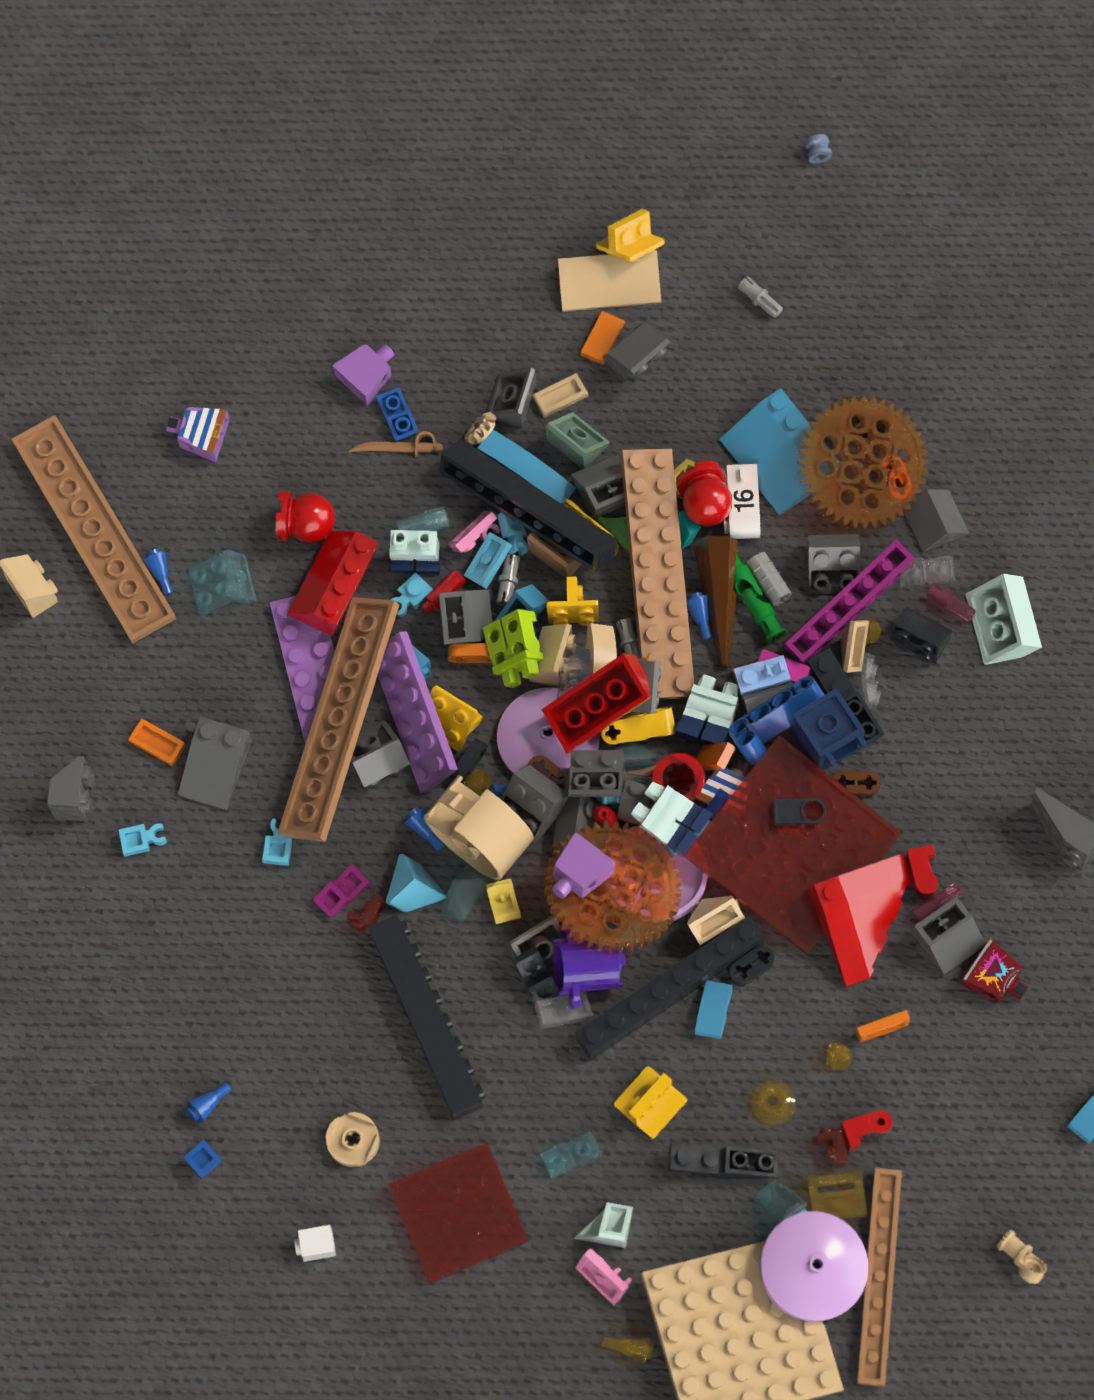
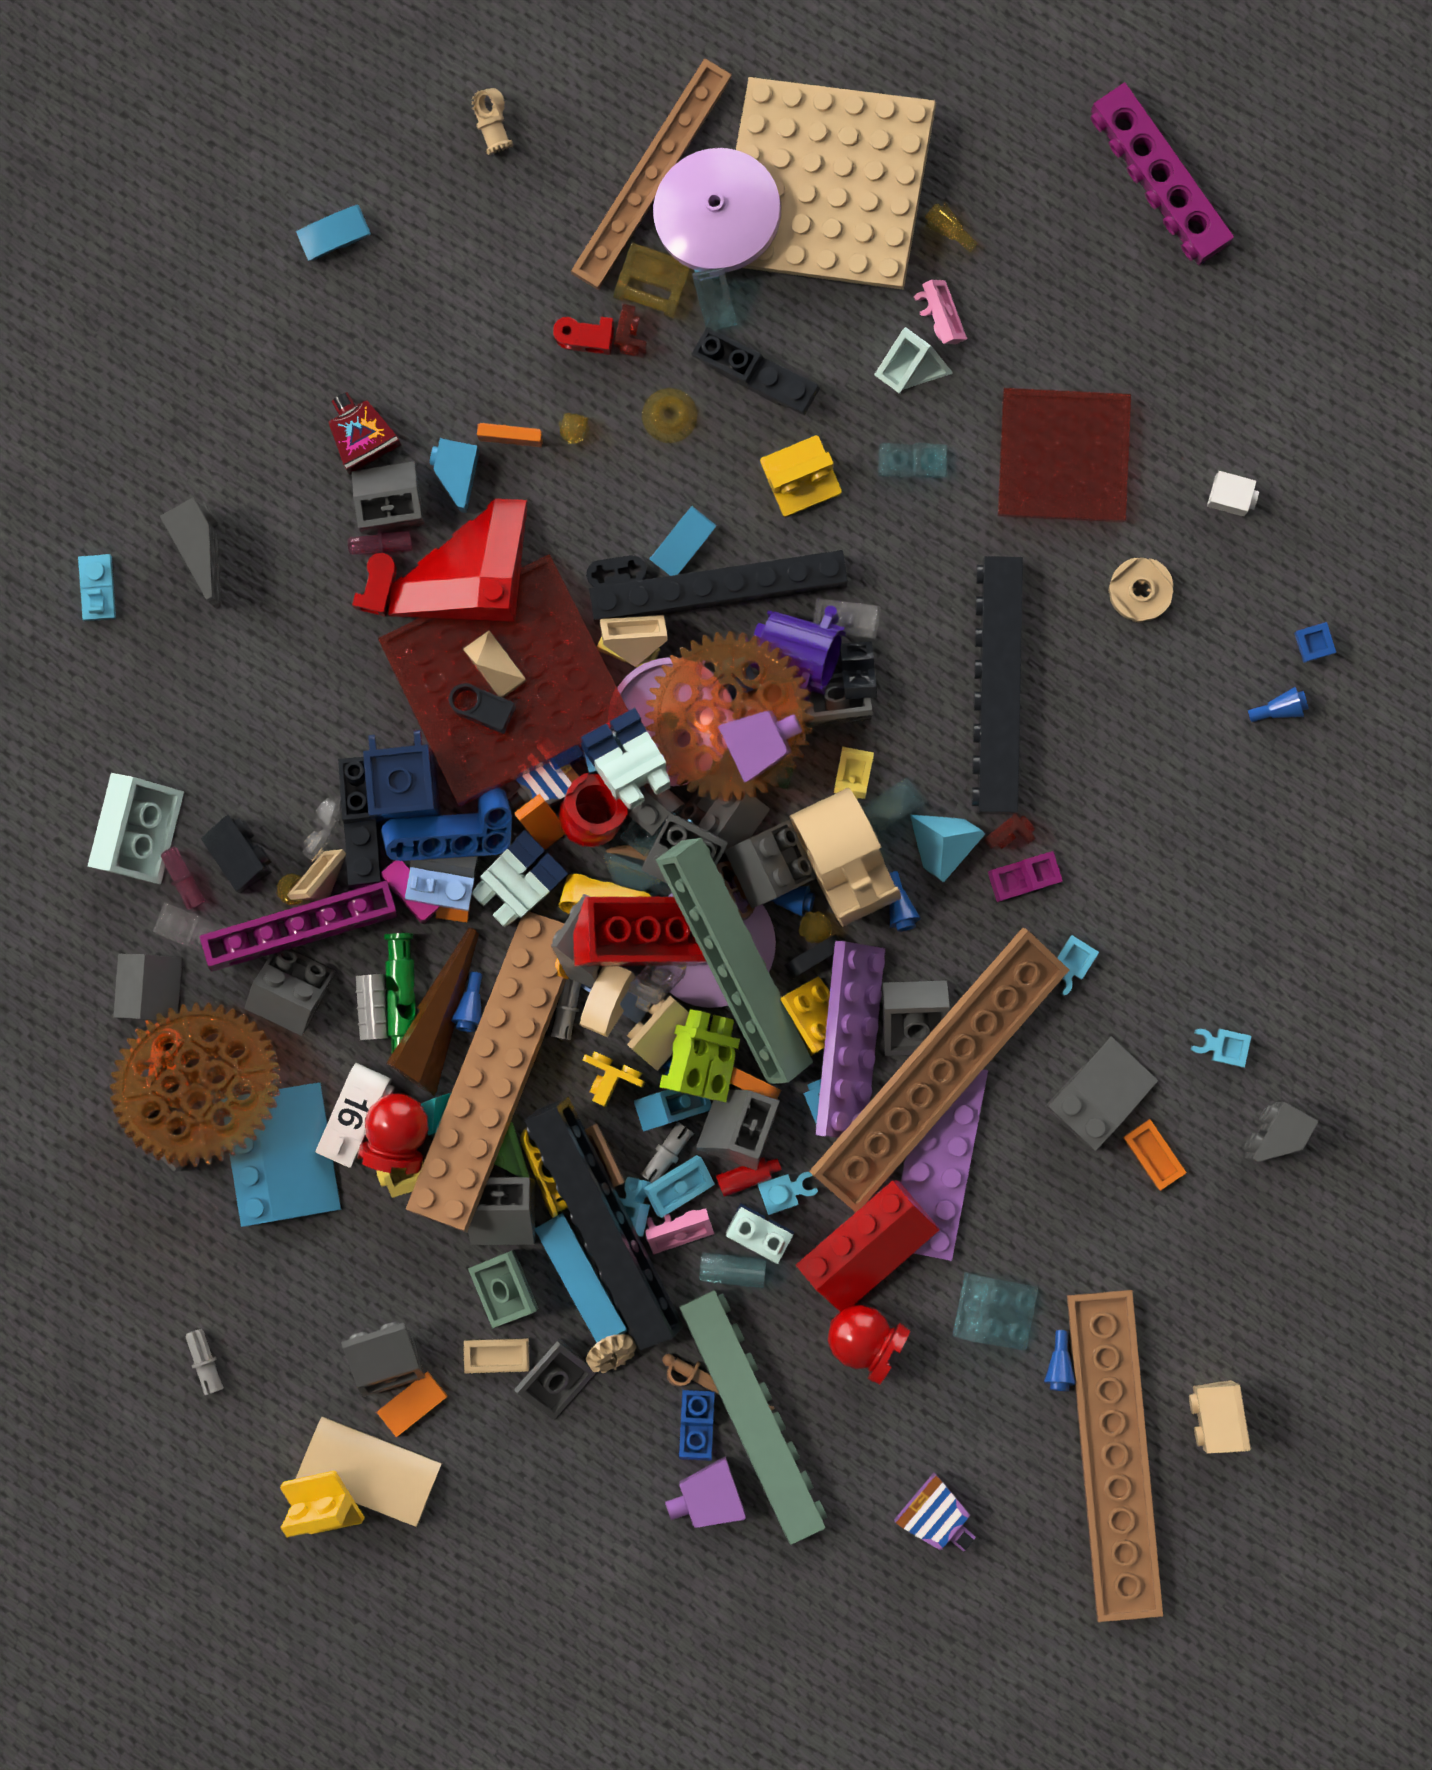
camera: 155 degrees left, 15 degrees up
(361, 435) = (752, 1416): none -> sand green brick
(525, 719) = (734, 960): none -> sand green brick
(604, 814) = (694, 807): red arm -> none
(805, 847) = (494, 664): none -> tan slope
(818, 148) = (38, 1519): sand blue wheel -> none
(860, 778) = (394, 728): reddish brown beam -> none
(909, 980) = (455, 468): none -> dark azure slope

